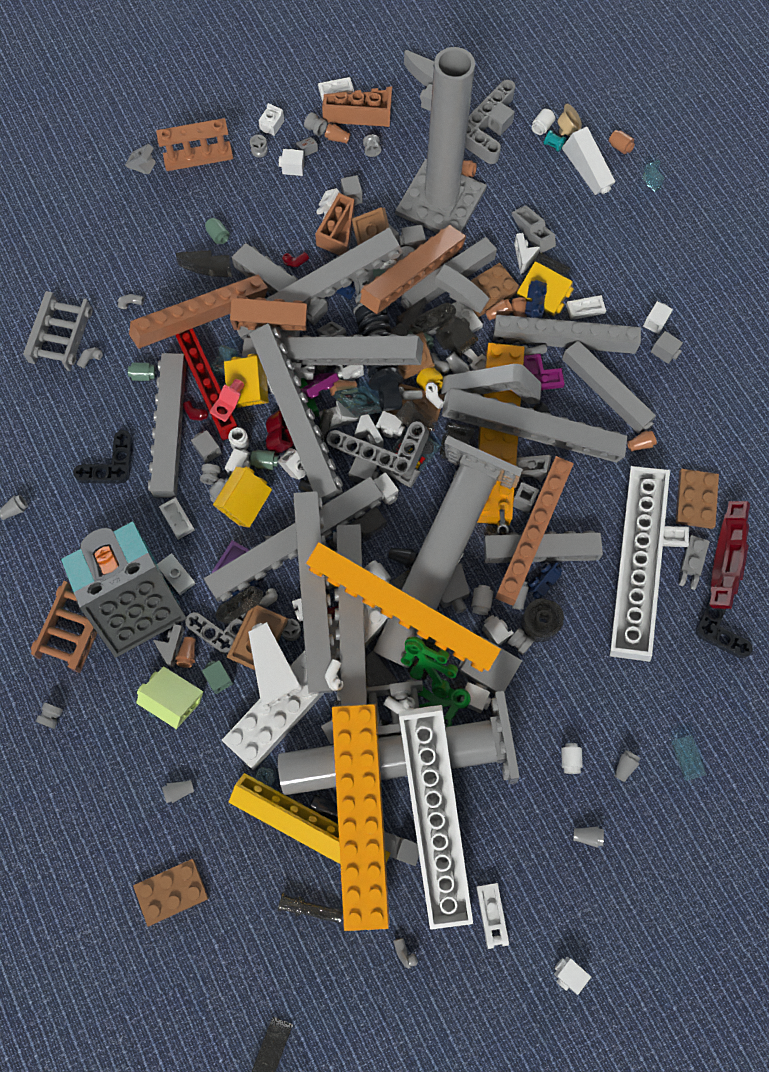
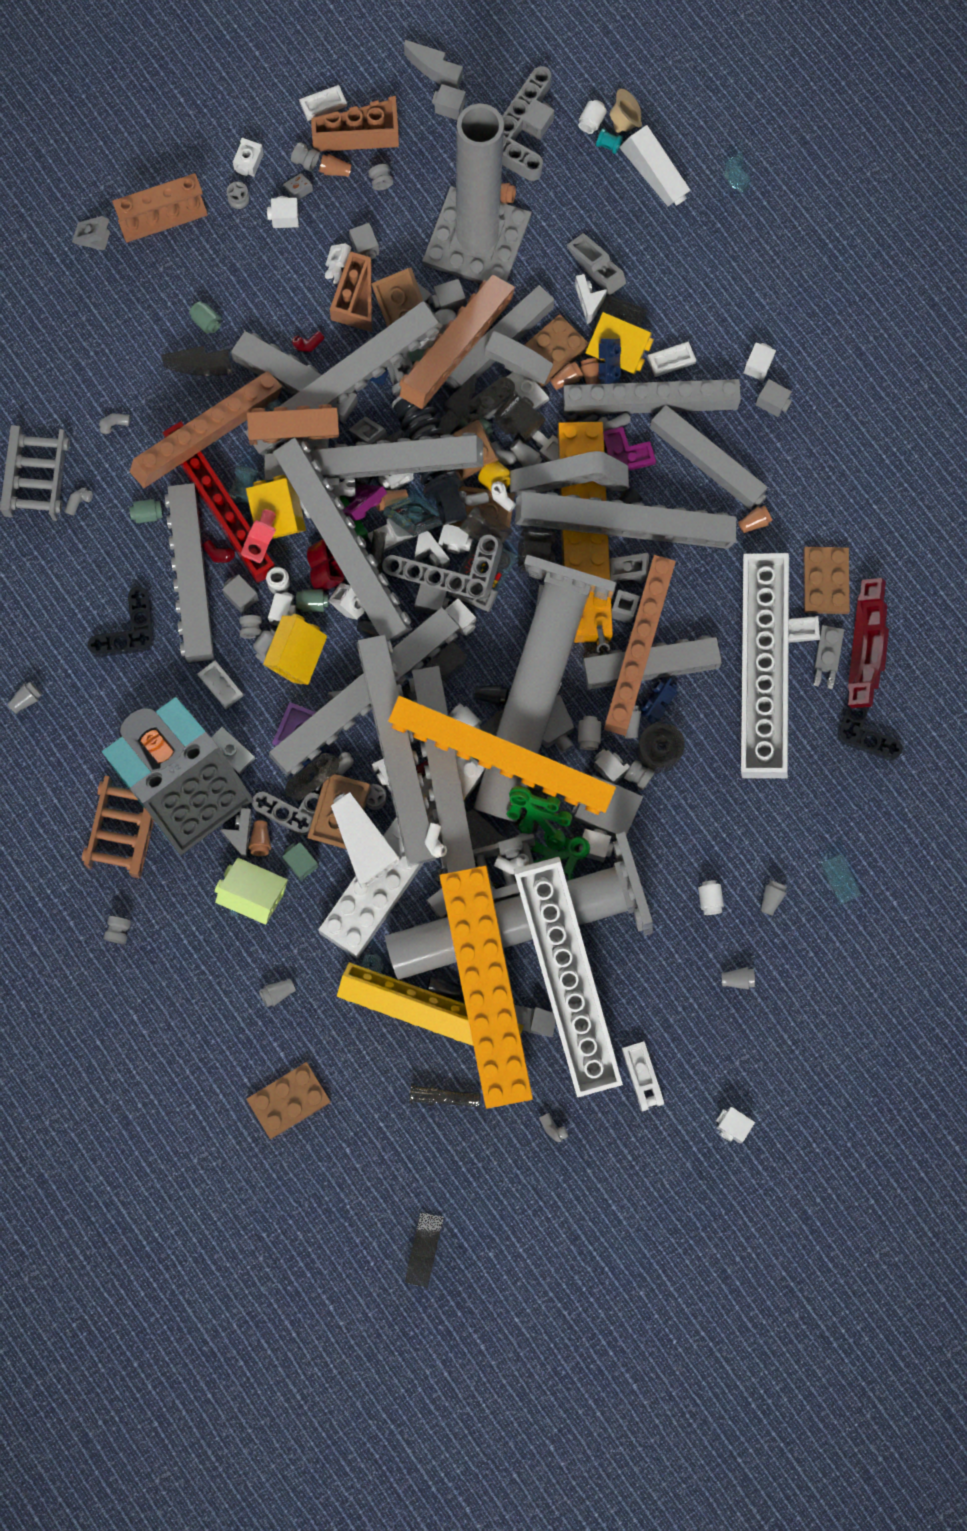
camera: 10 degrees left, 5 degrees up
(621, 141) = (693, 131): nougat brick -> none

